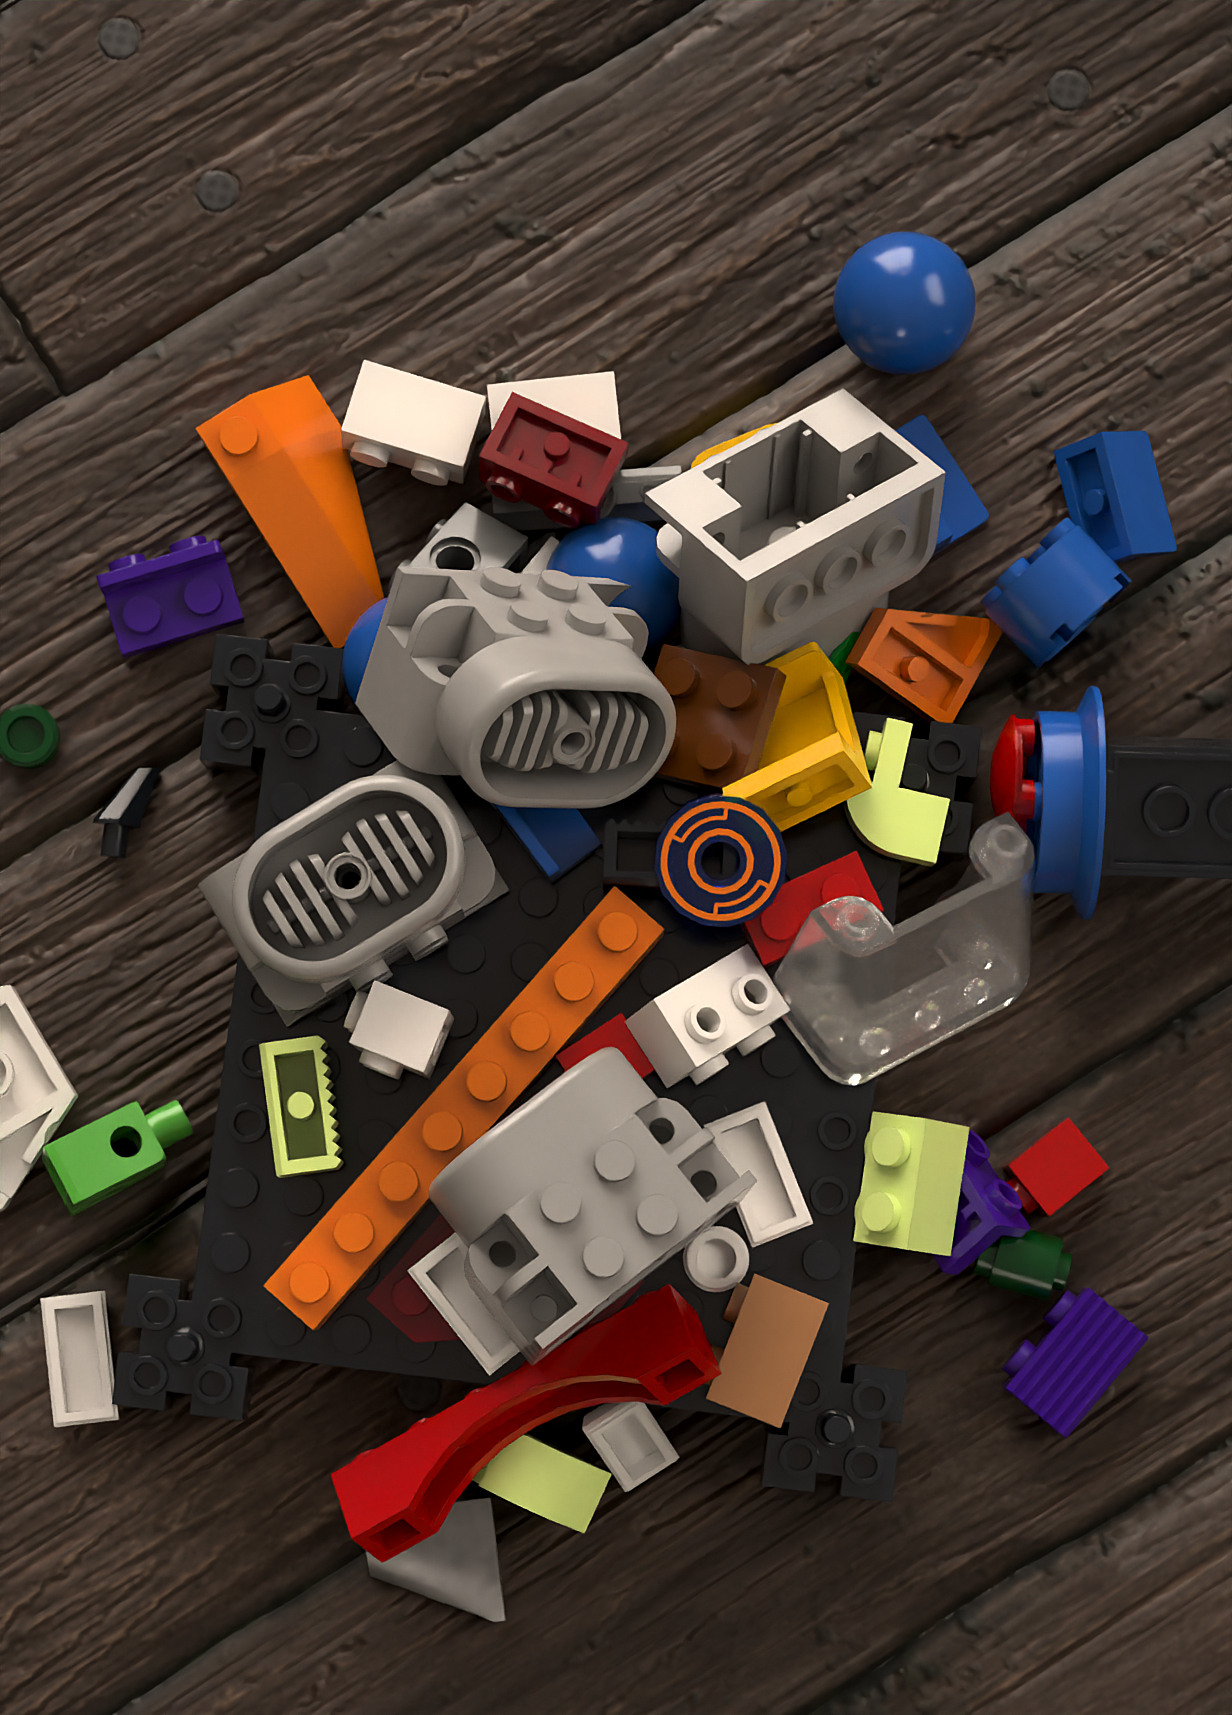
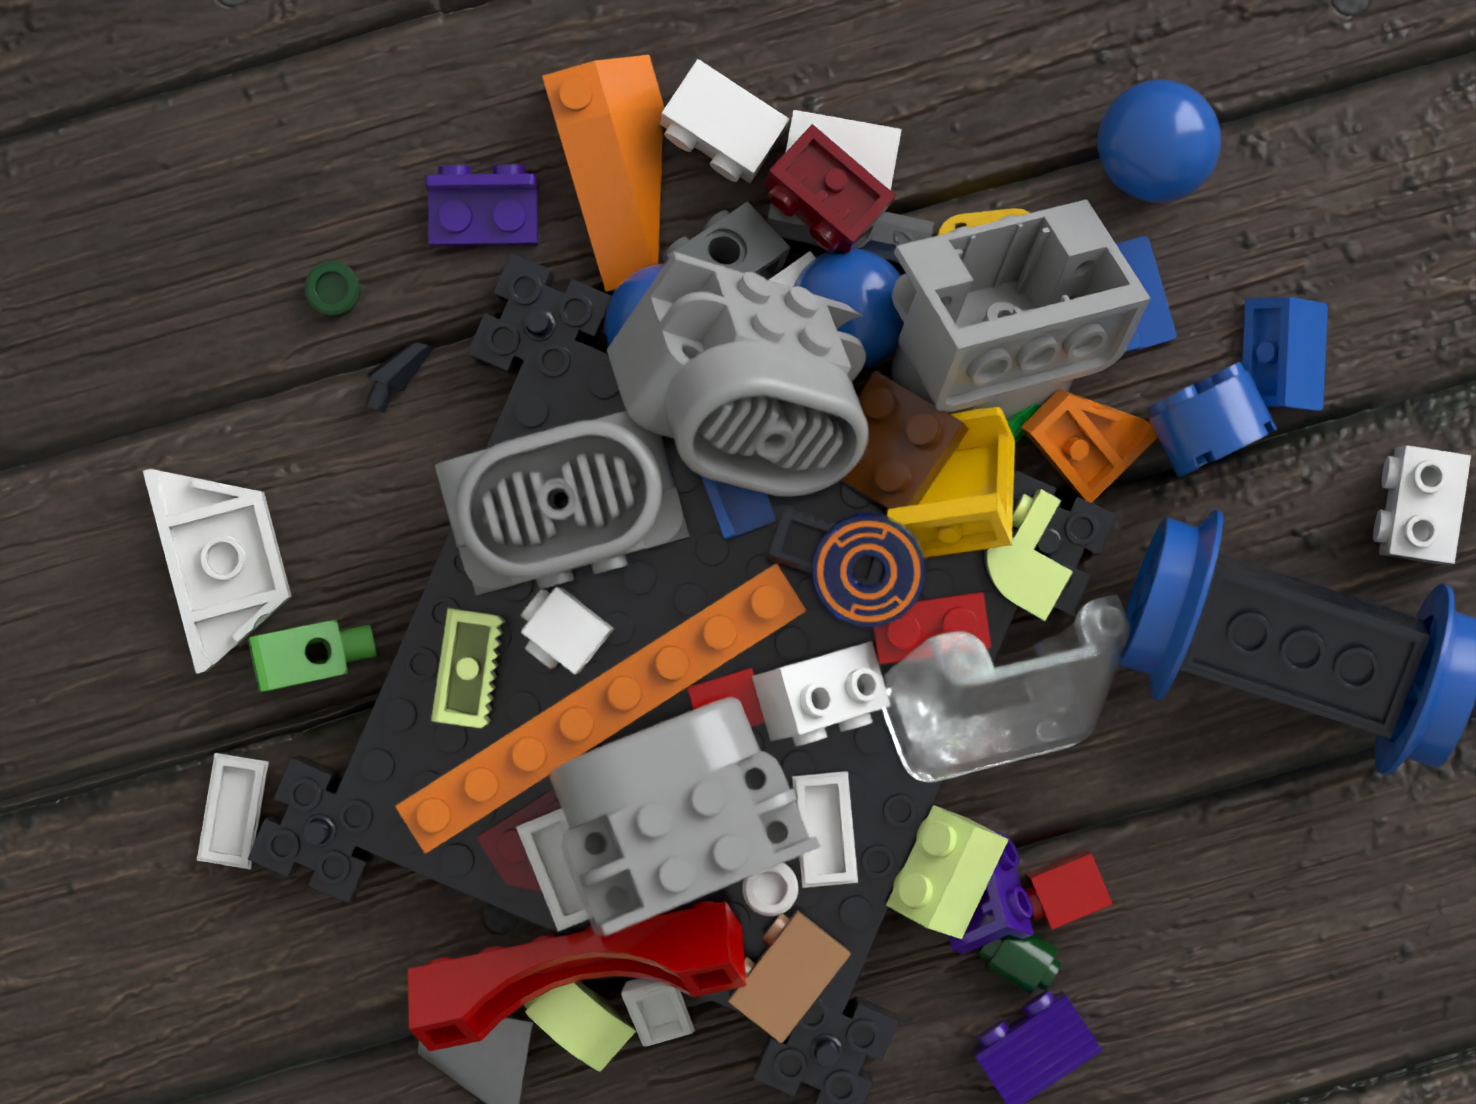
camera: 15 degrees right, 5 degrees up
(1008, 768) = (1122, 571): red dish -> none

